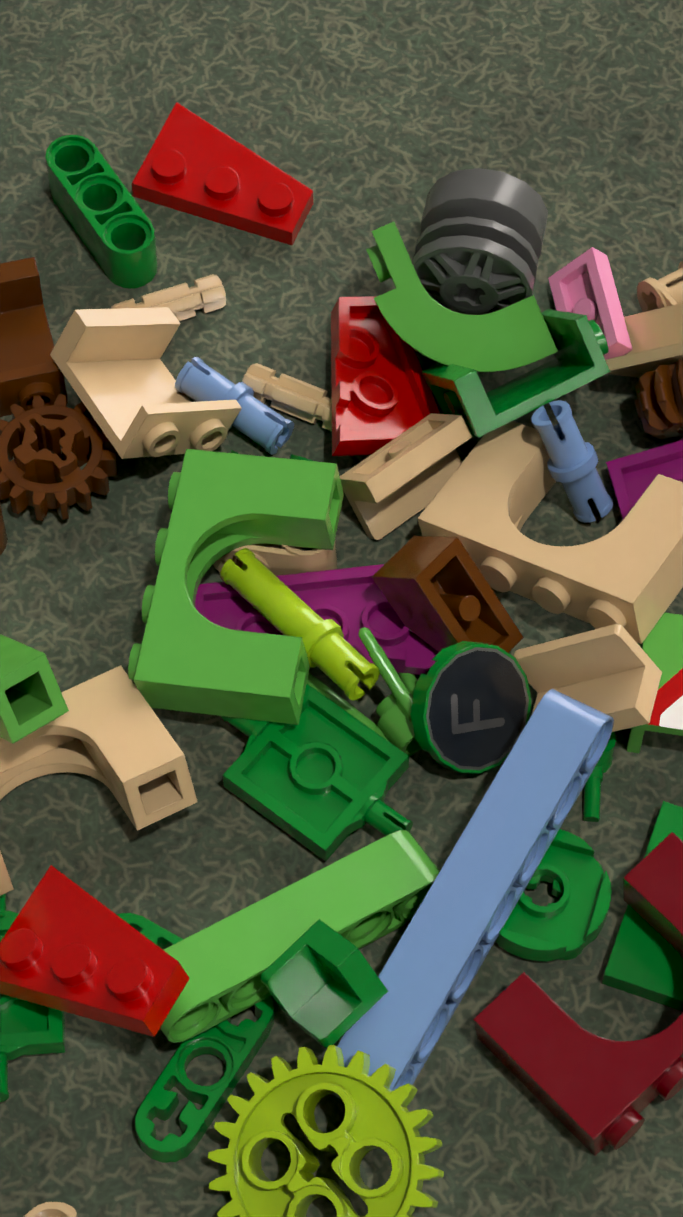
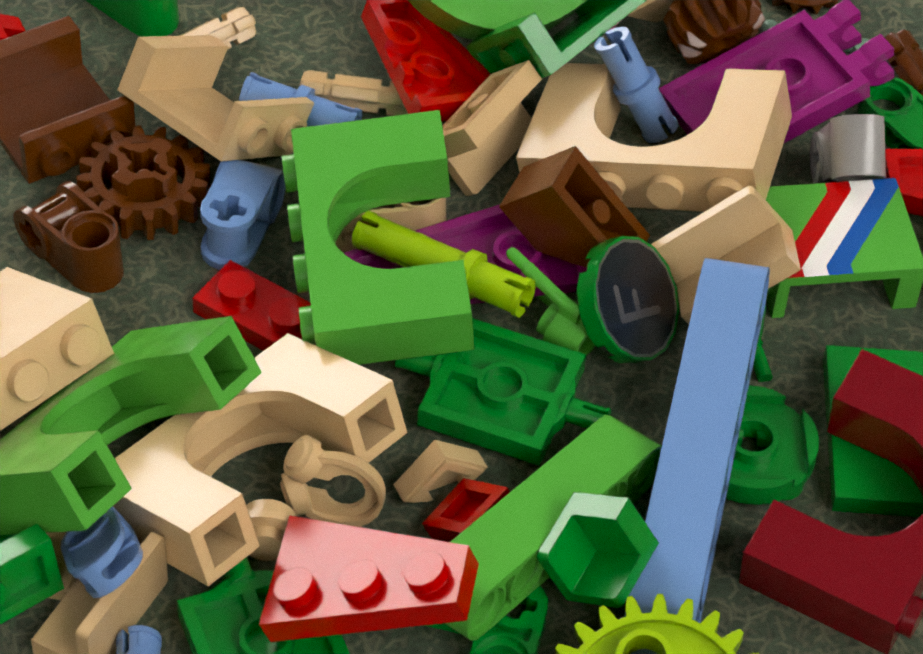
camera: 20 degrees left, 10 degrees down
(29, 863) = (269, 522): none -> tan plate
(89, 812) = (309, 461): none -> tan piece
(104, 614) = (258, 306): none -> red plate
(127, 512) = (239, 211): none -> medium blue piece
(223, 840) = (437, 467): none -> tan tile
(228, 894) = (462, 508): none -> red plate

